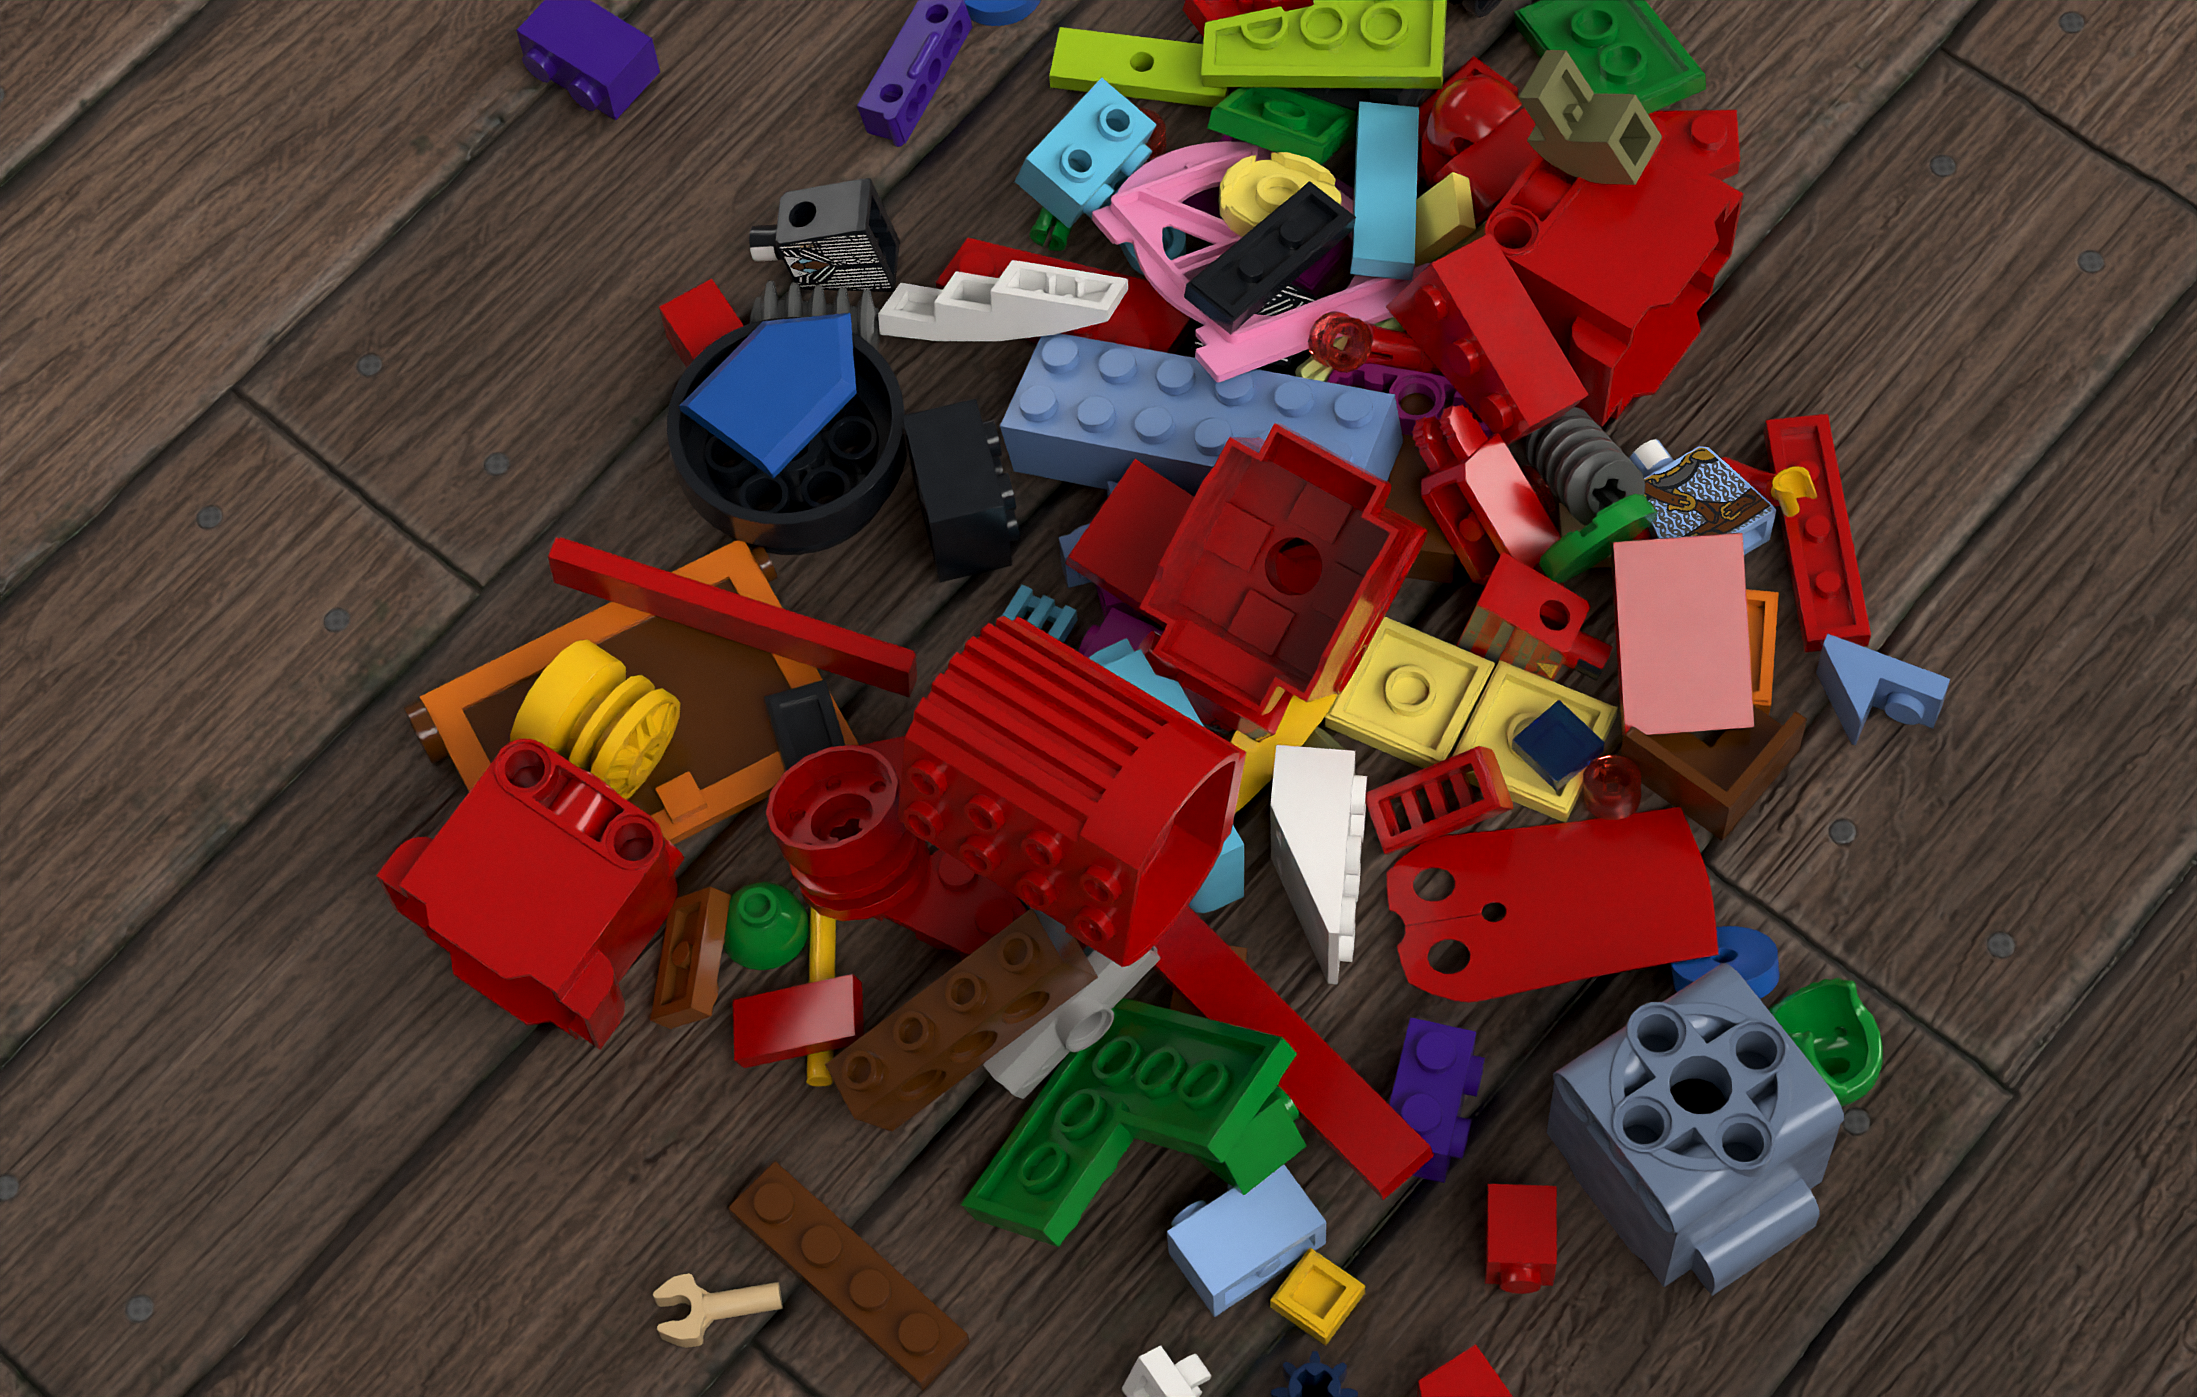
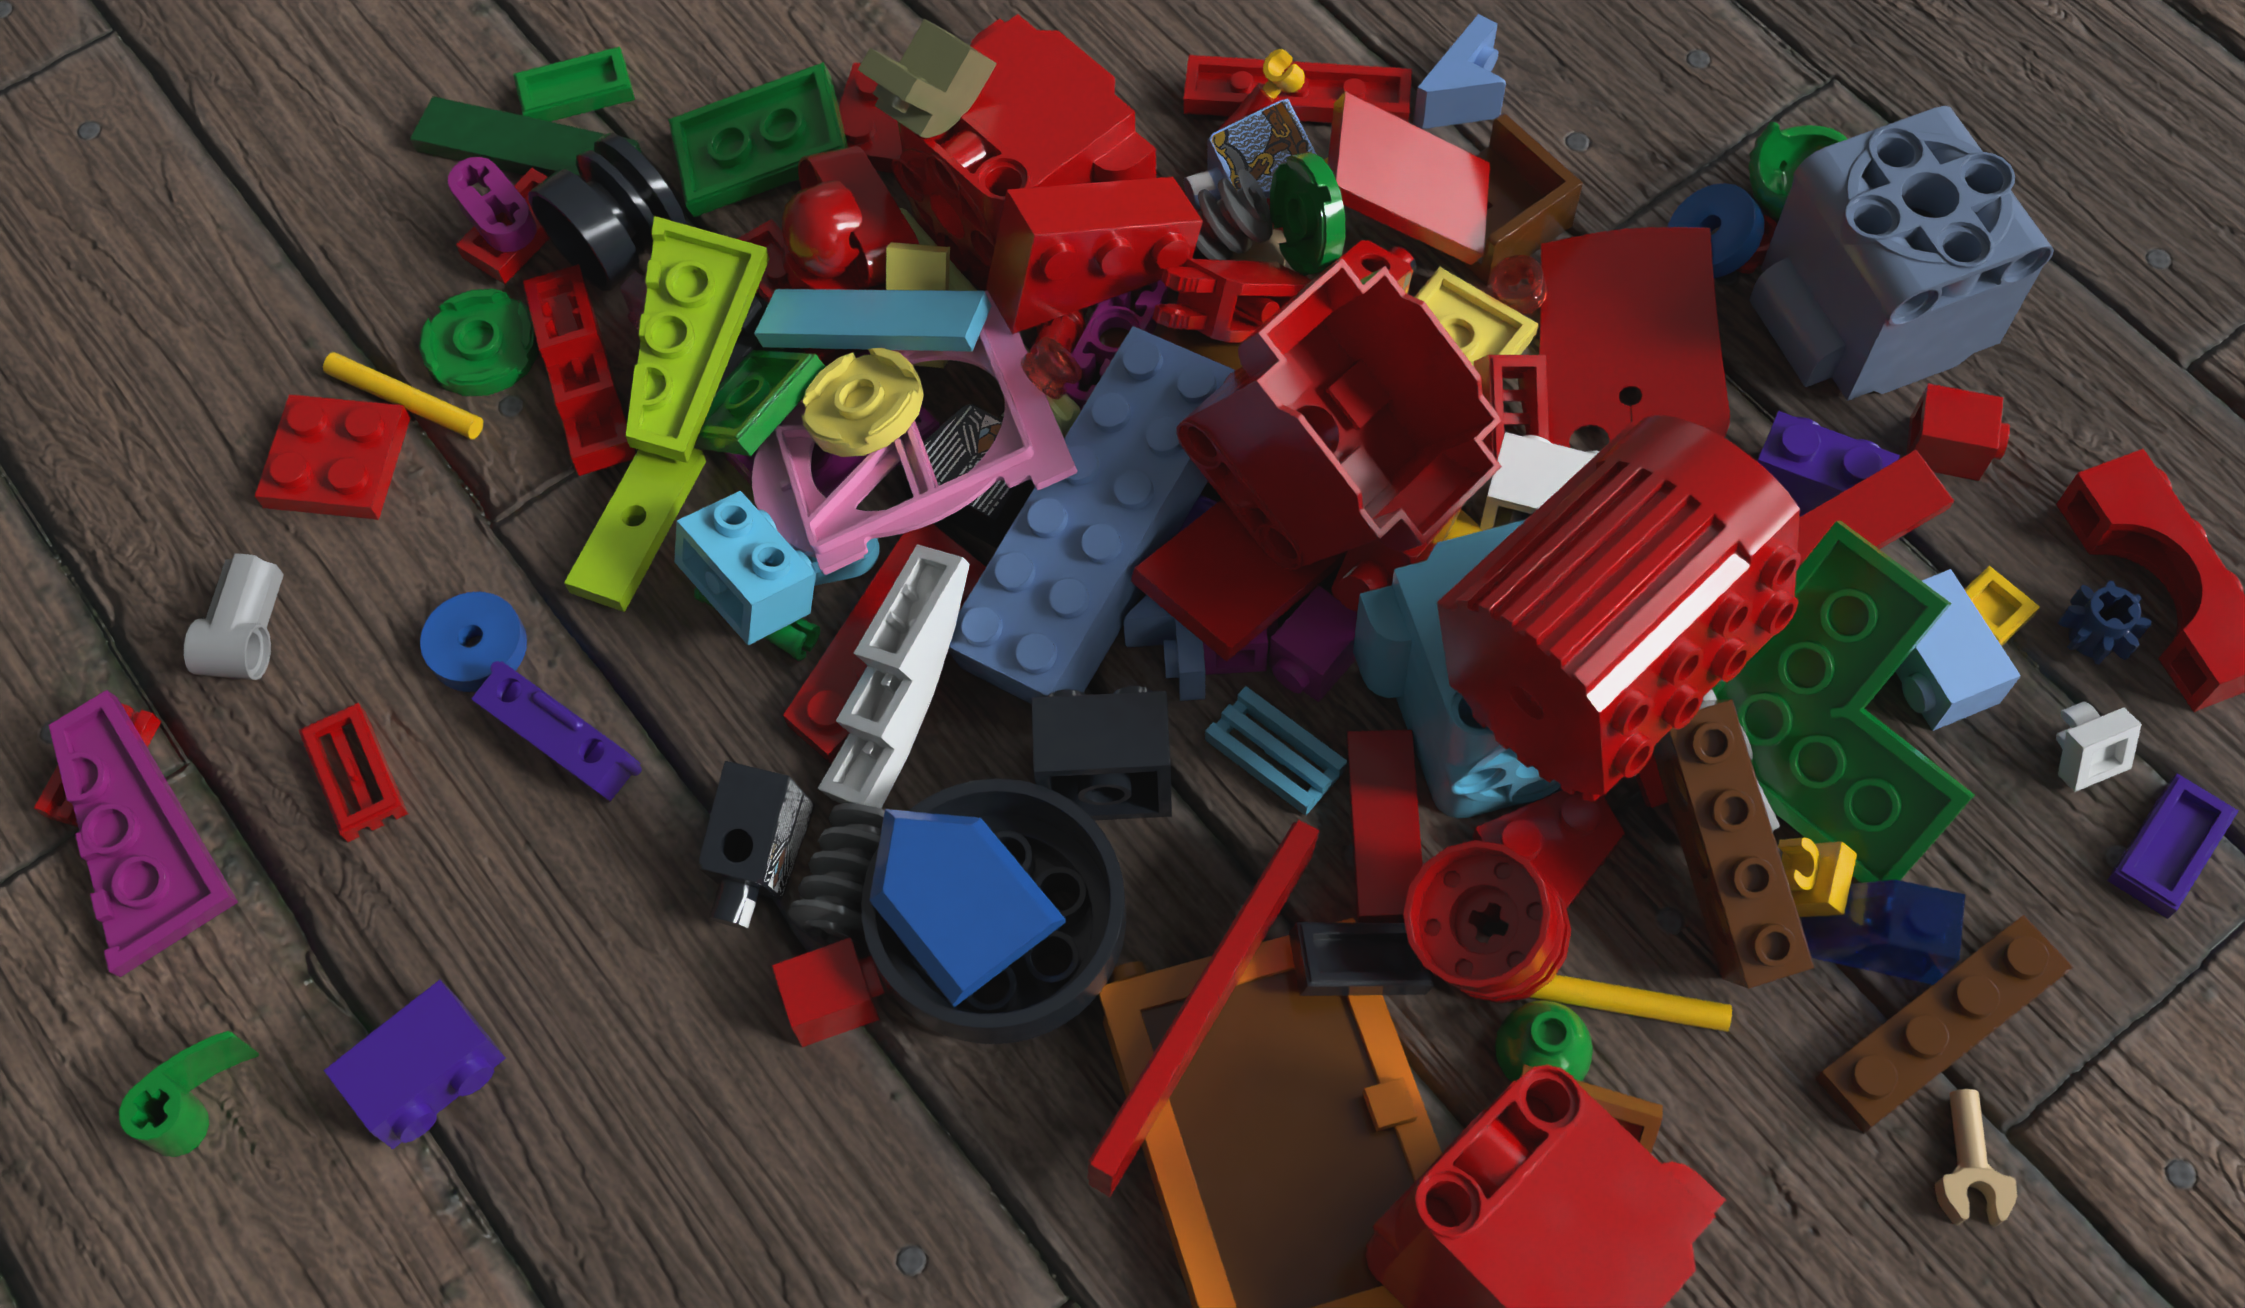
camera: 80 degrees left, 0 degrees up
(599, 717) = (1327, 1160): yellow wheel -> none
(798, 1021) = (1672, 1021): red tile -> none
(925, 1206) = (1892, 930): none -> clear blue slope
(965, 1132) = (1818, 875): none -> yellow tile
(1269, 257) = (950, 401): black tile -> none
(1557, 745) = (1478, 310): clear blue tile -> none

